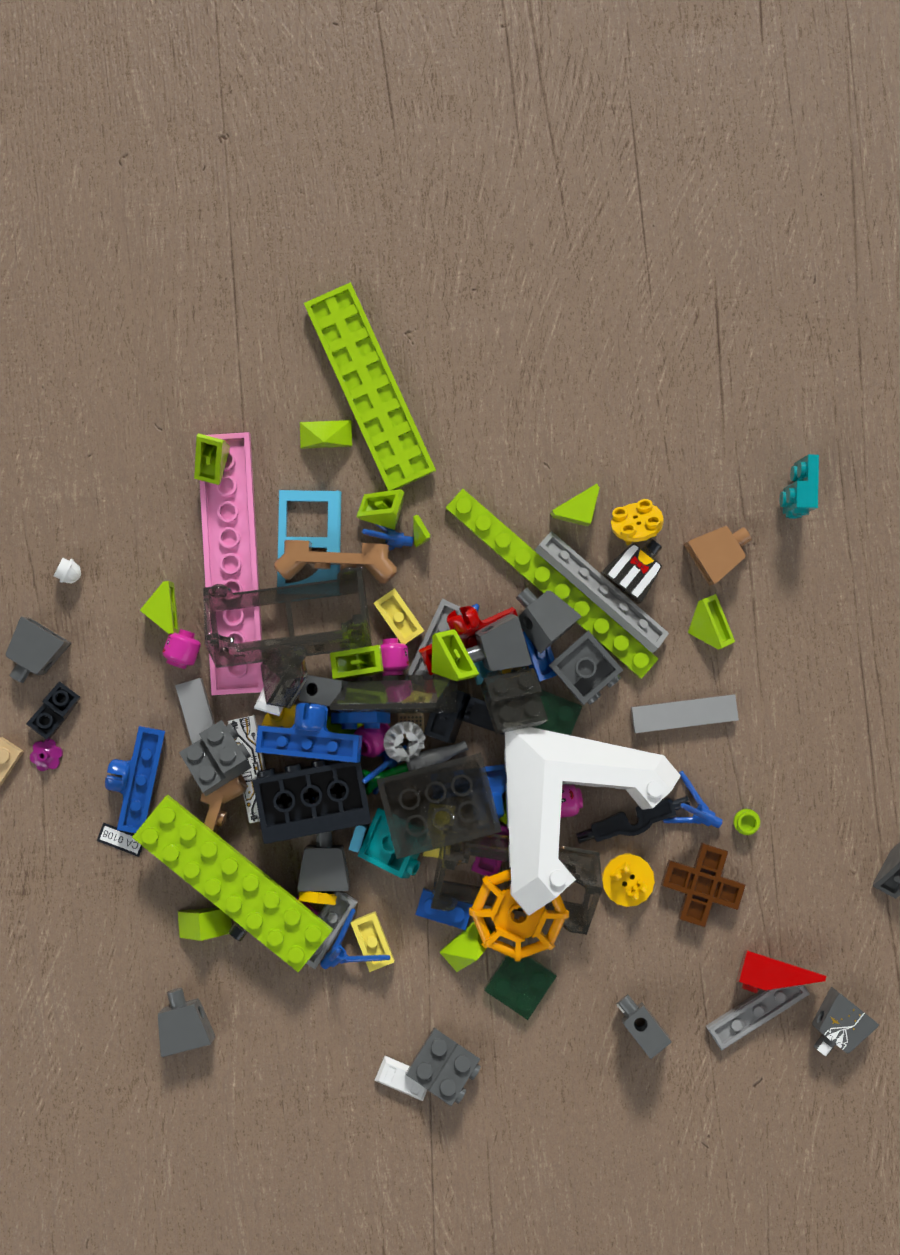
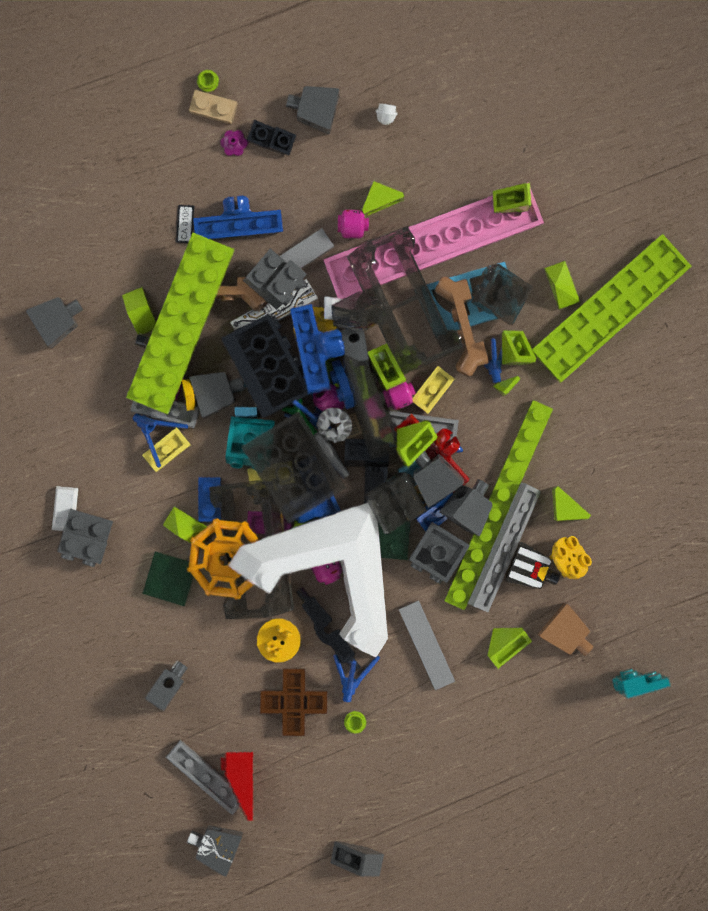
camera: 70 degrees right, 0 degrees up
(314, 505) = (501, 293): none -> clear smoke plate

